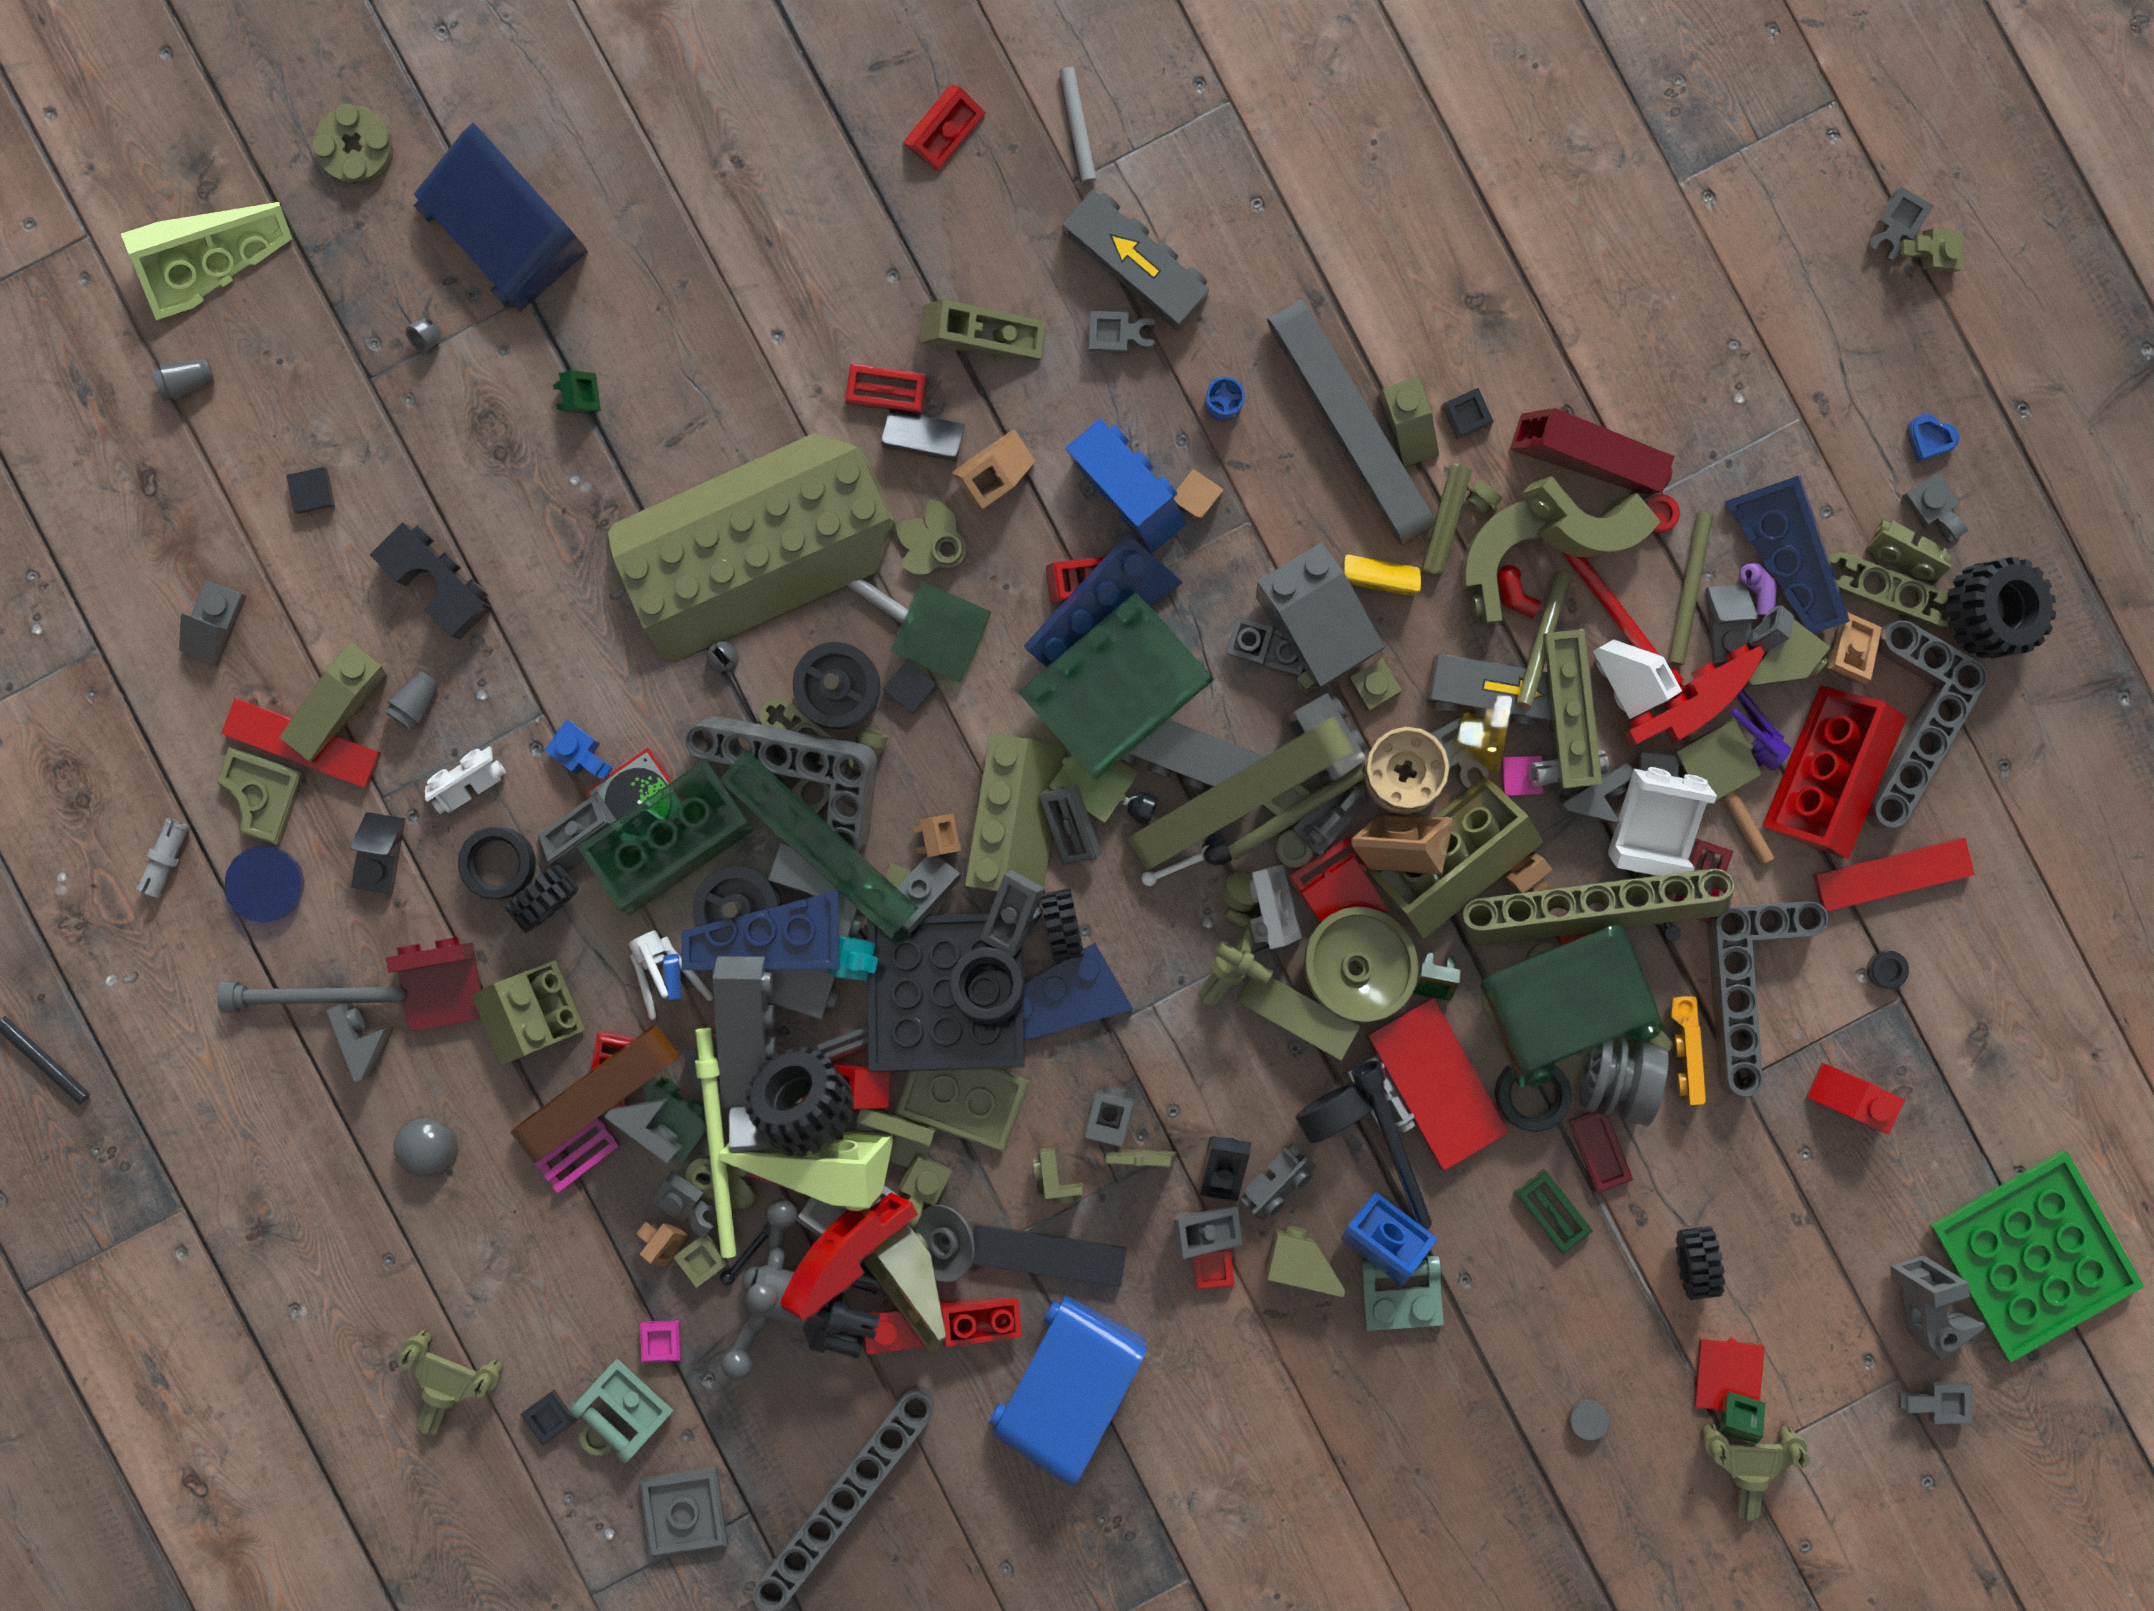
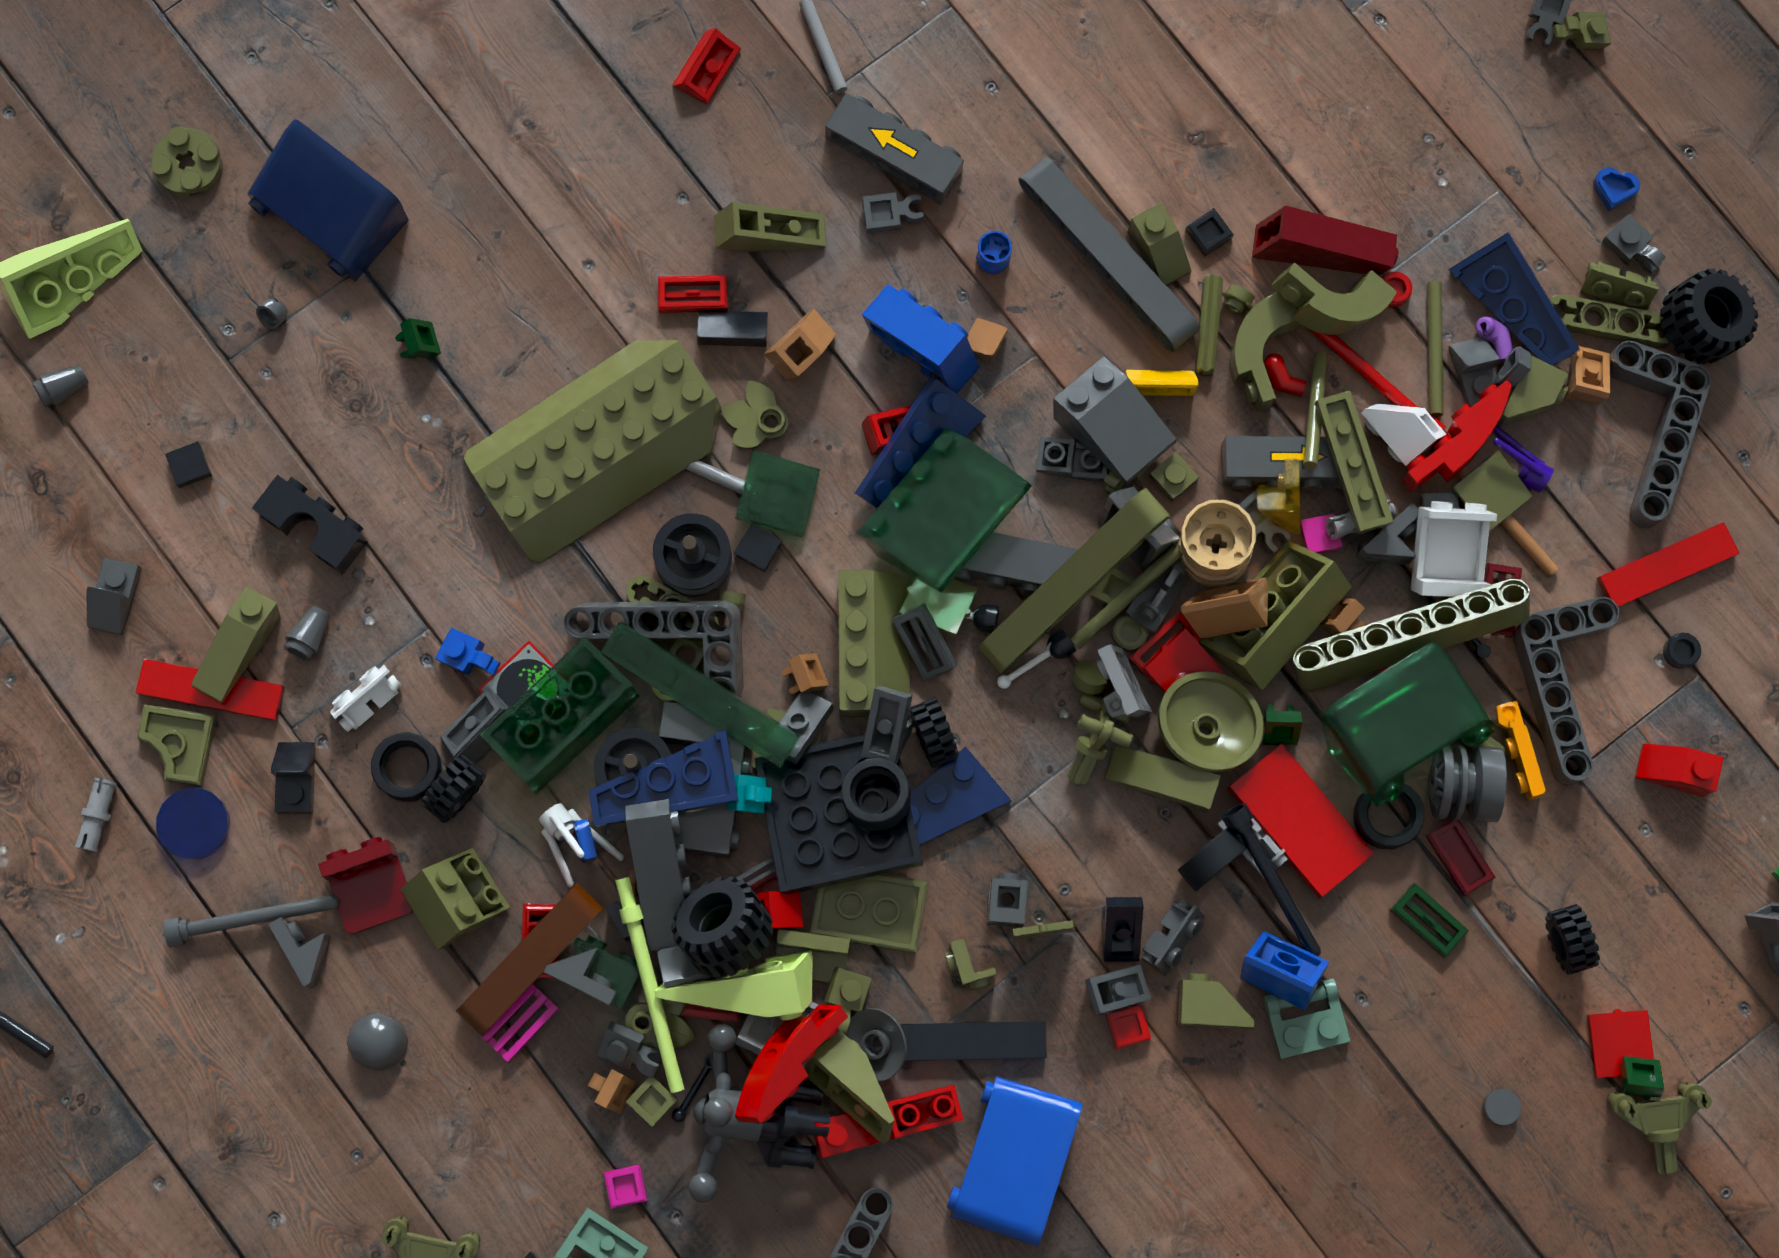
camera: 15 degrees left, 10 degrees down
(728, 650) = (579, 555): dark grey hinge -> none
(1835, 771) = (1596, 482): red slope -> none

